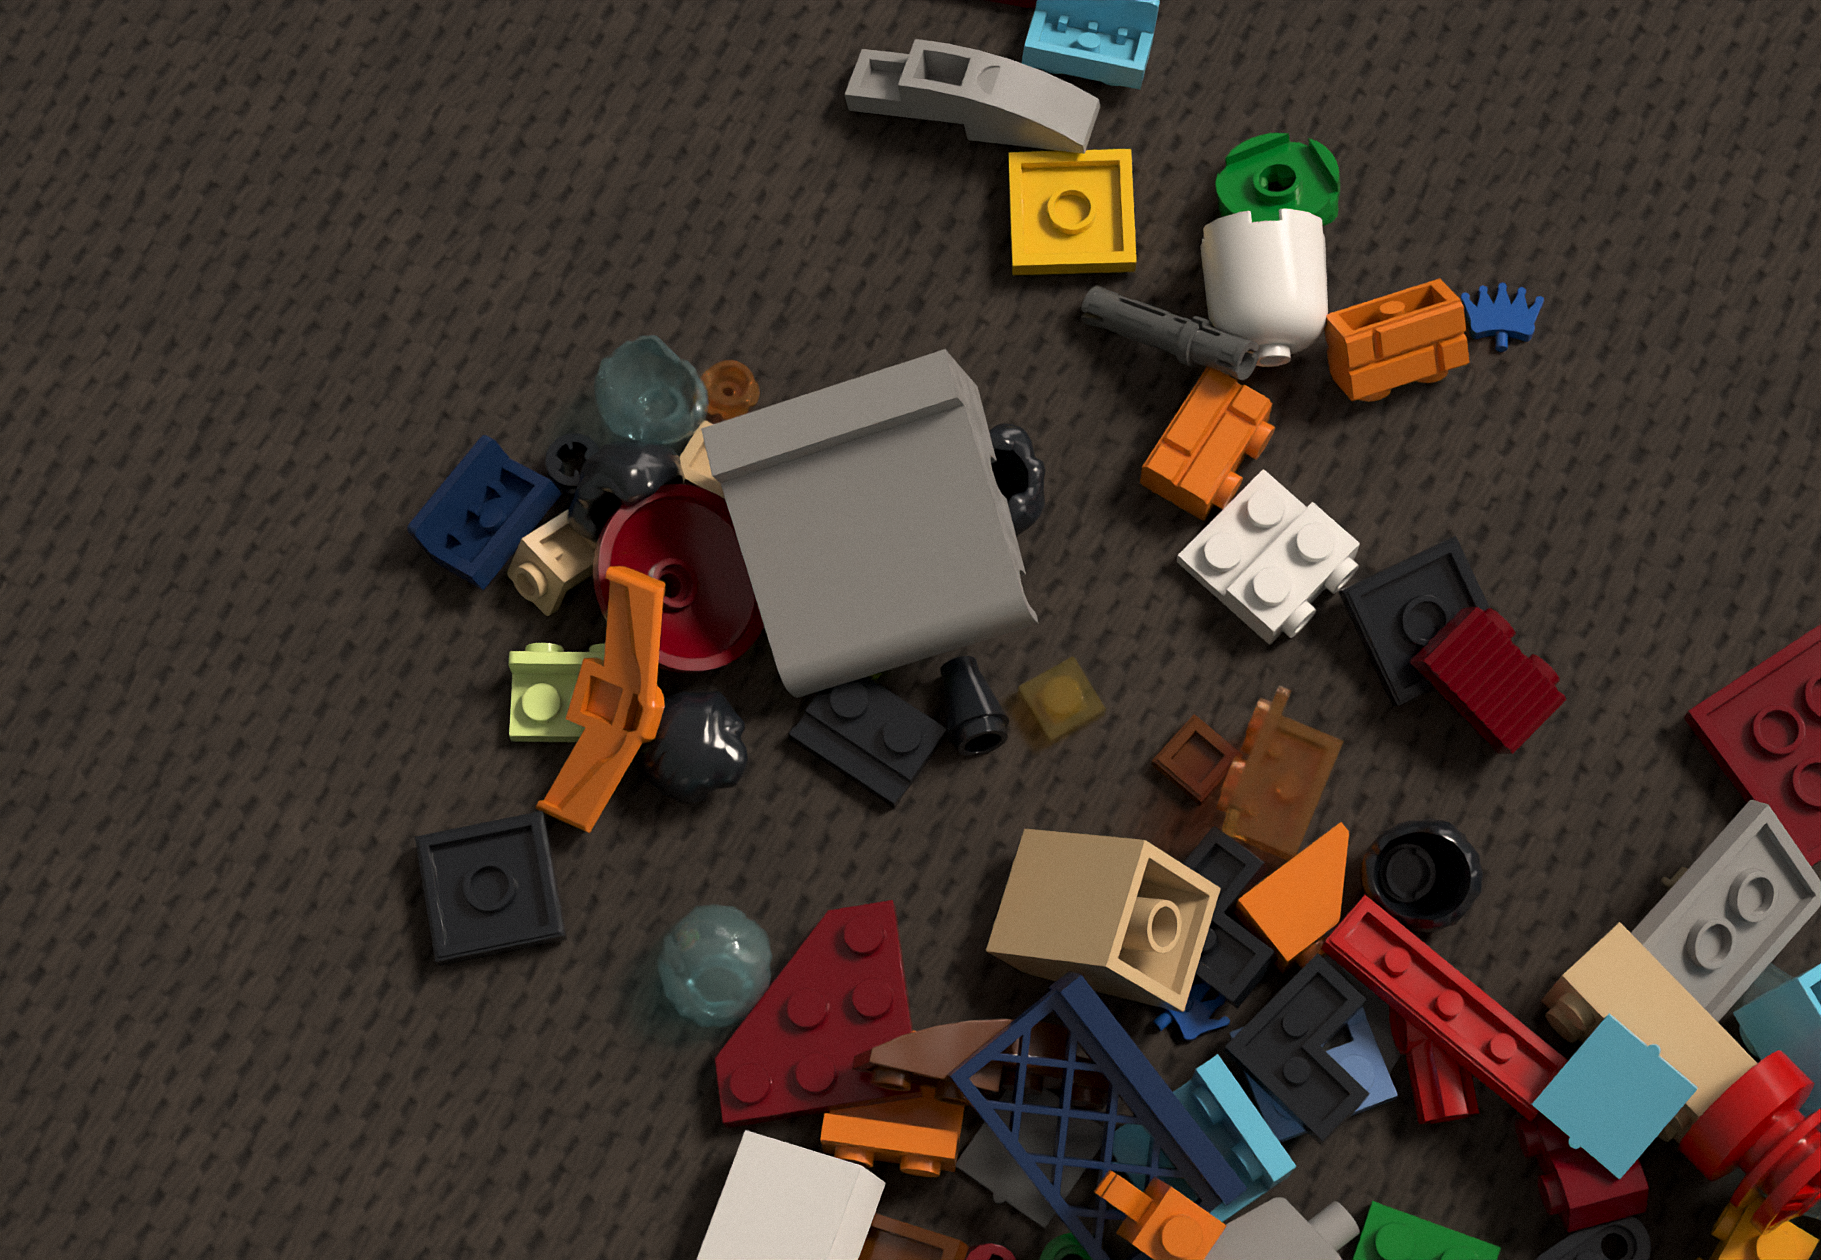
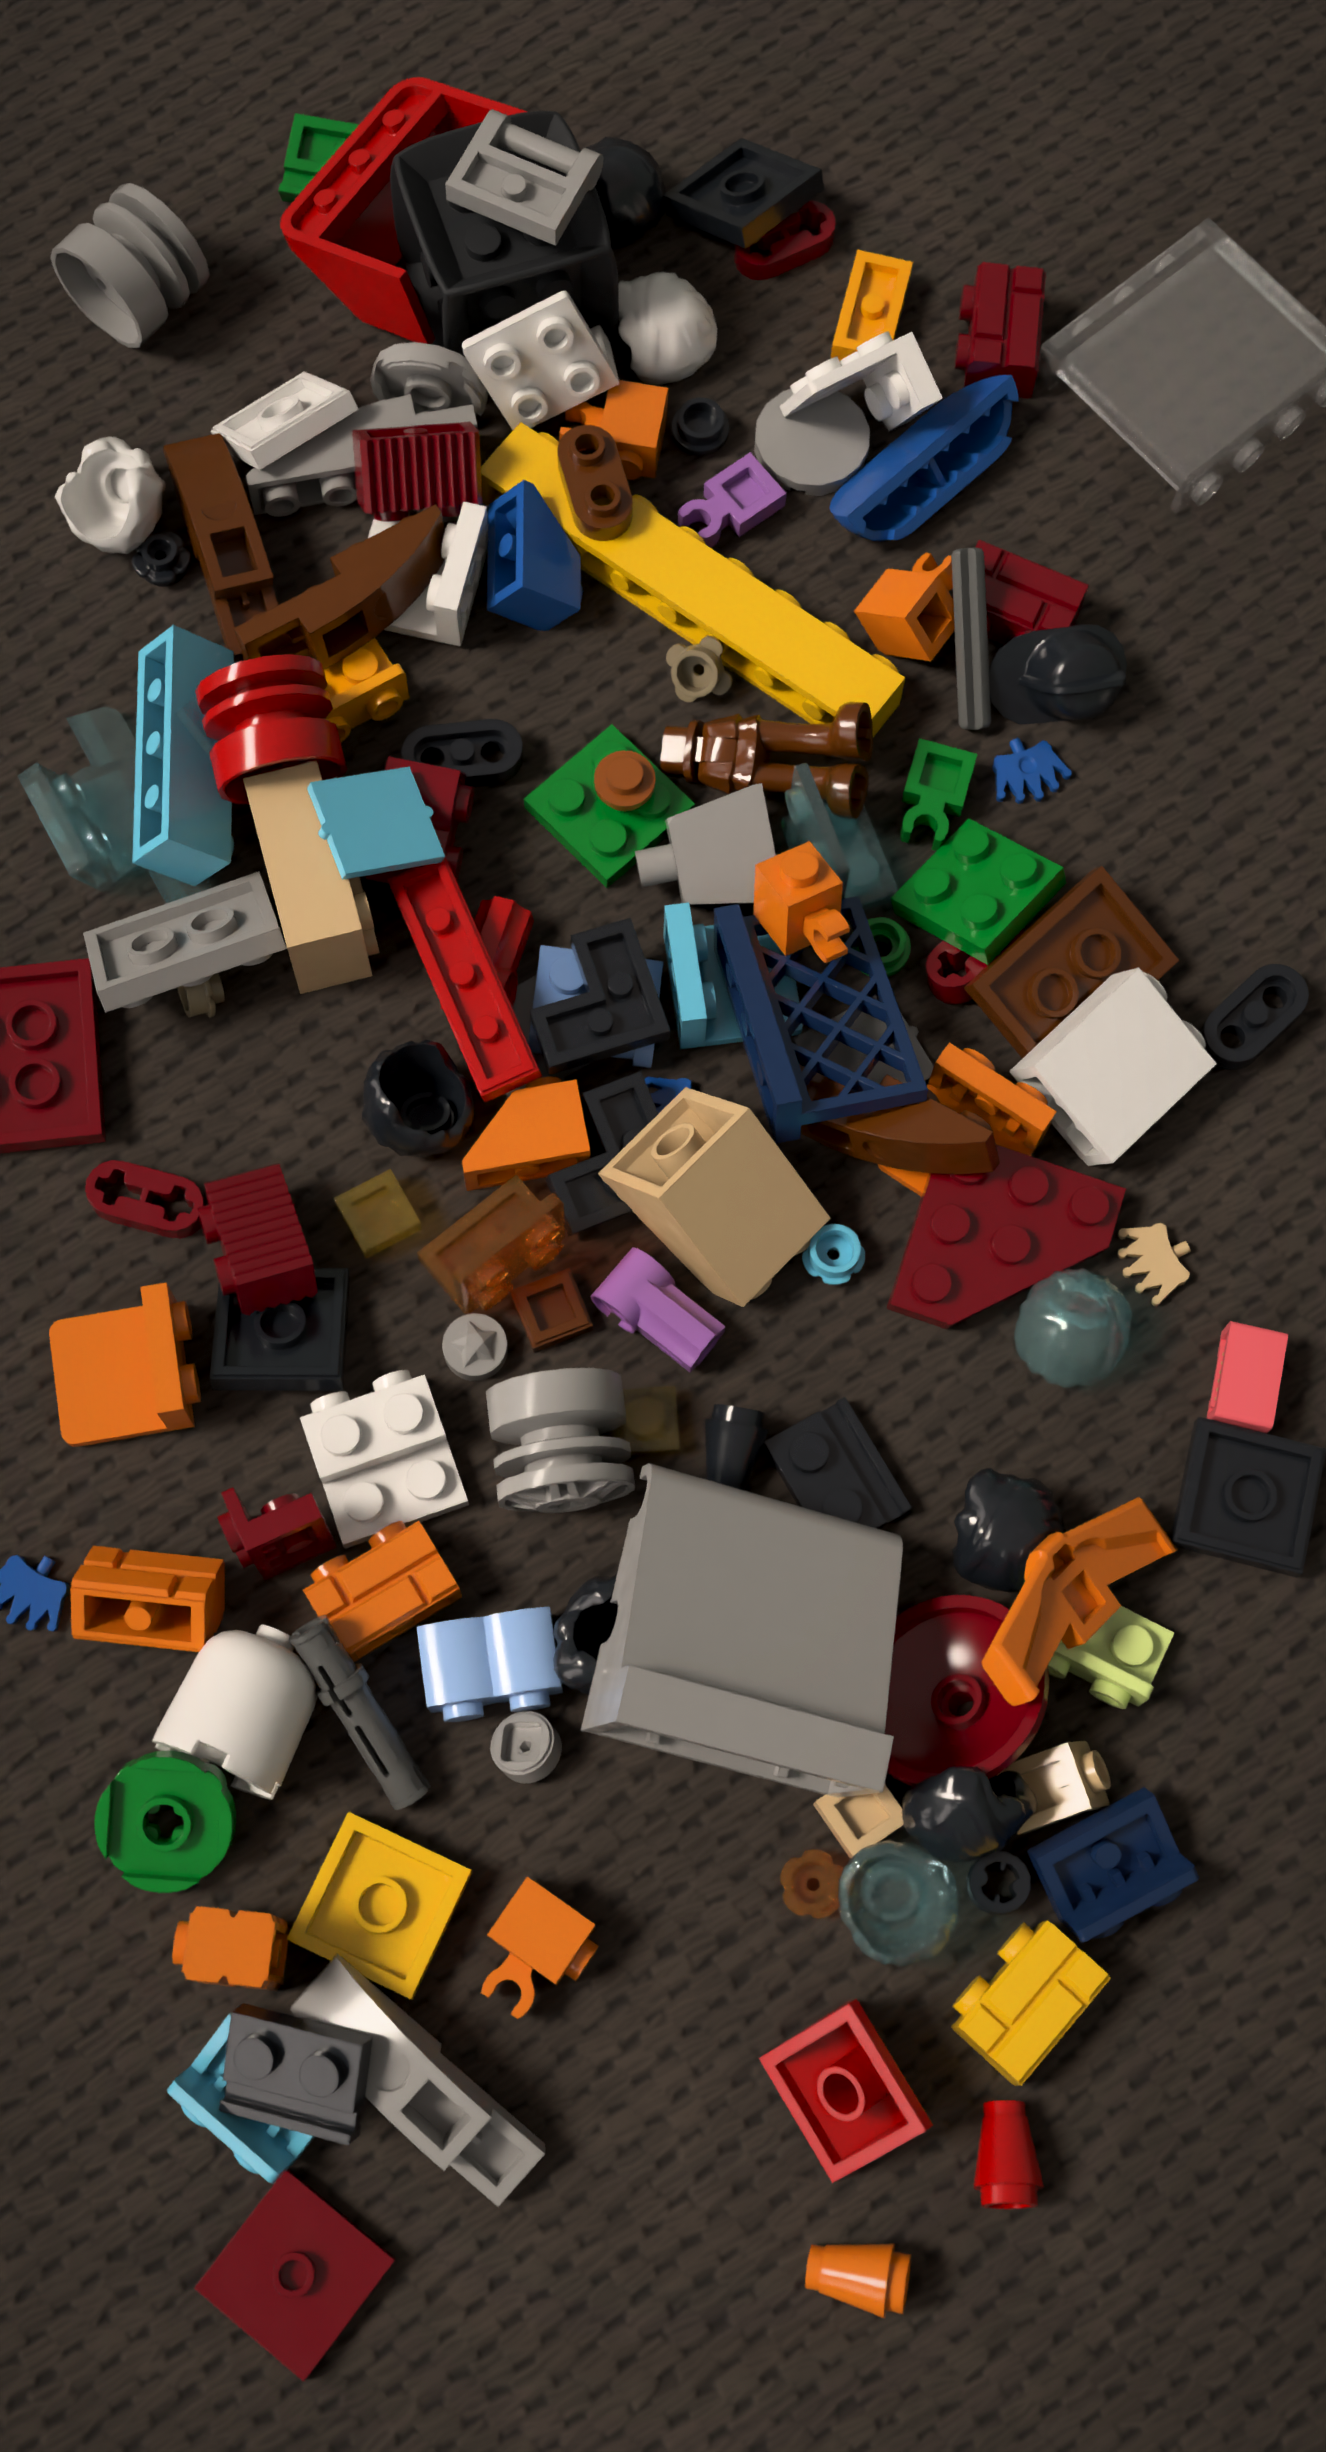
camera: 160 degrees left, 0 degrees up
(477, 260) = (1007, 2158): none -> red cone
(511, 379) = (1028, 2000): none -> yellow brick
(534, 996) = (1247, 1376): none -> coral piece
(556, 129) = (861, 2275): none -> orange cone
(626, 253) = (845, 2091): none -> red slope
(665, 1080) = (1155, 1258): none -> tan piece
(929, 241) = (541, 1937): none -> orange brick
(955, 922) = (850, 1254): none -> medium azure plate
(1019, 384) = (526, 1747): none -> light grey tile
(1066, 48) = (295, 2073): none -> black plate
(1089, 429) = (489, 1663): none -> light blue brick
(1115, 801) = (648, 1302): none -> medium lavender piece
(1117, 615) = (558, 1425): none -> light grey wheel
(1165, 111) = (232, 1948): none -> orange brick
(1240, 689) = (475, 1347): none -> light grey tile
(1335, 419) = (280, 1538): none -> dark red bracket
(1399, 765) = (378, 1213): none -> clear yellow plate
(1535, 520) = (125, 1370): none -> orange bracket
(1610, 666) = (150, 1185): none -> dark red beam

